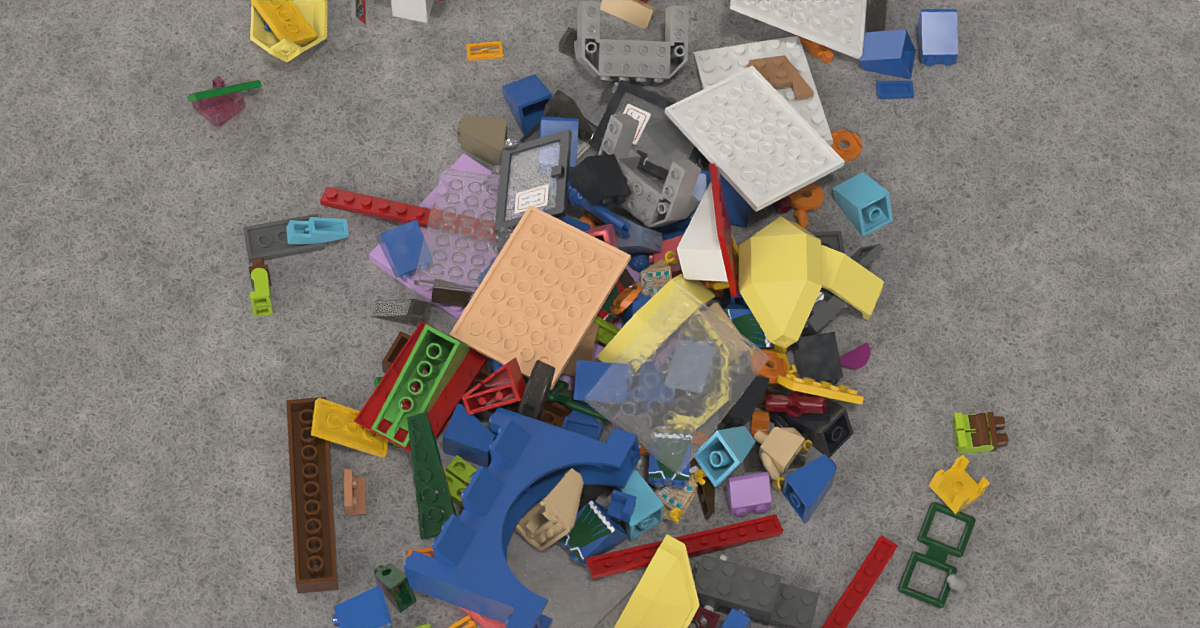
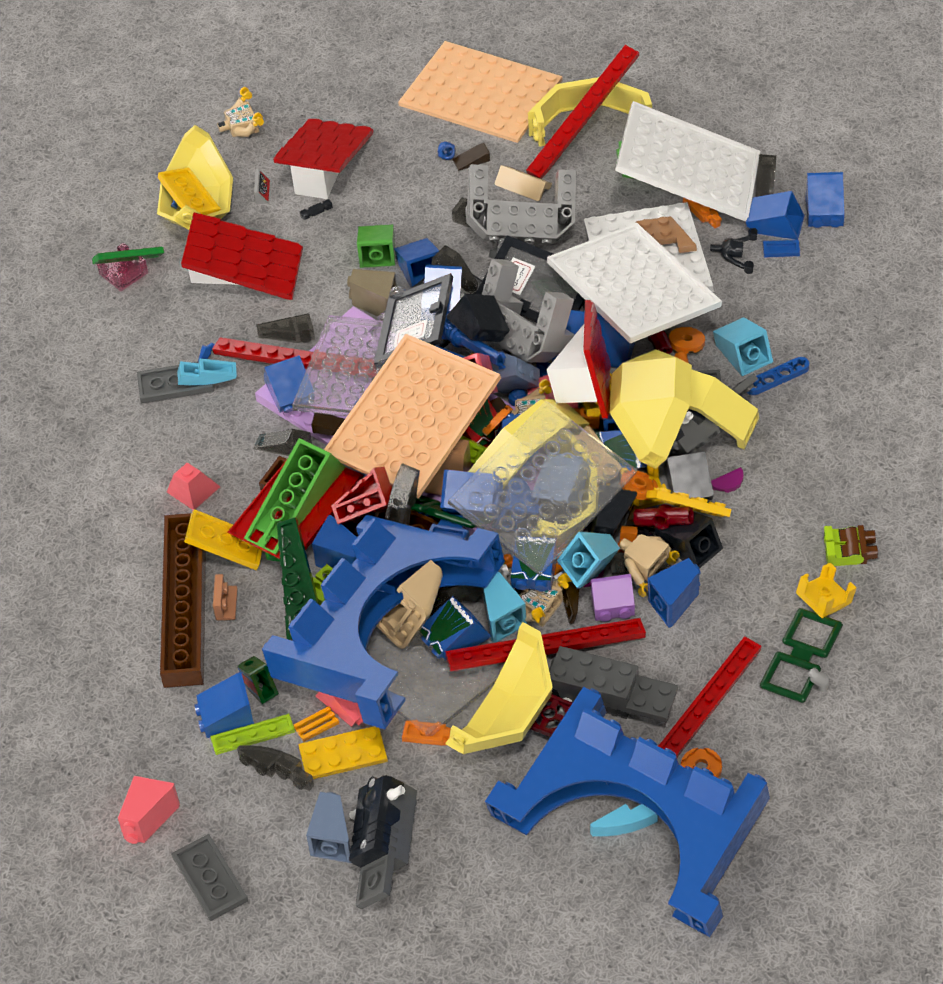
camera: 10 degrees right, 10 degrees down
(261, 297) = (148, 427): lime hips -> none
(311, 364) = (191, 486): none -> coral slope
(312, 204) = (206, 351): none -> blue bar
(344, 95) = (240, 256): none -> red piece
(401, 179) = (290, 329): none -> clear smoke slope
(416, 35) = (316, 209): none -> black axle
(483, 81) = (376, 245): none -> bright green slope
(485, 53) = (380, 219): light orange tile -> none
(621, 506) = (483, 601): blue panel -> none
(847, 89) = (734, 248): none -> black piece
(852, 139) = (738, 296): orange tile -> none
(898, 238) = (778, 378): none -> blue beam

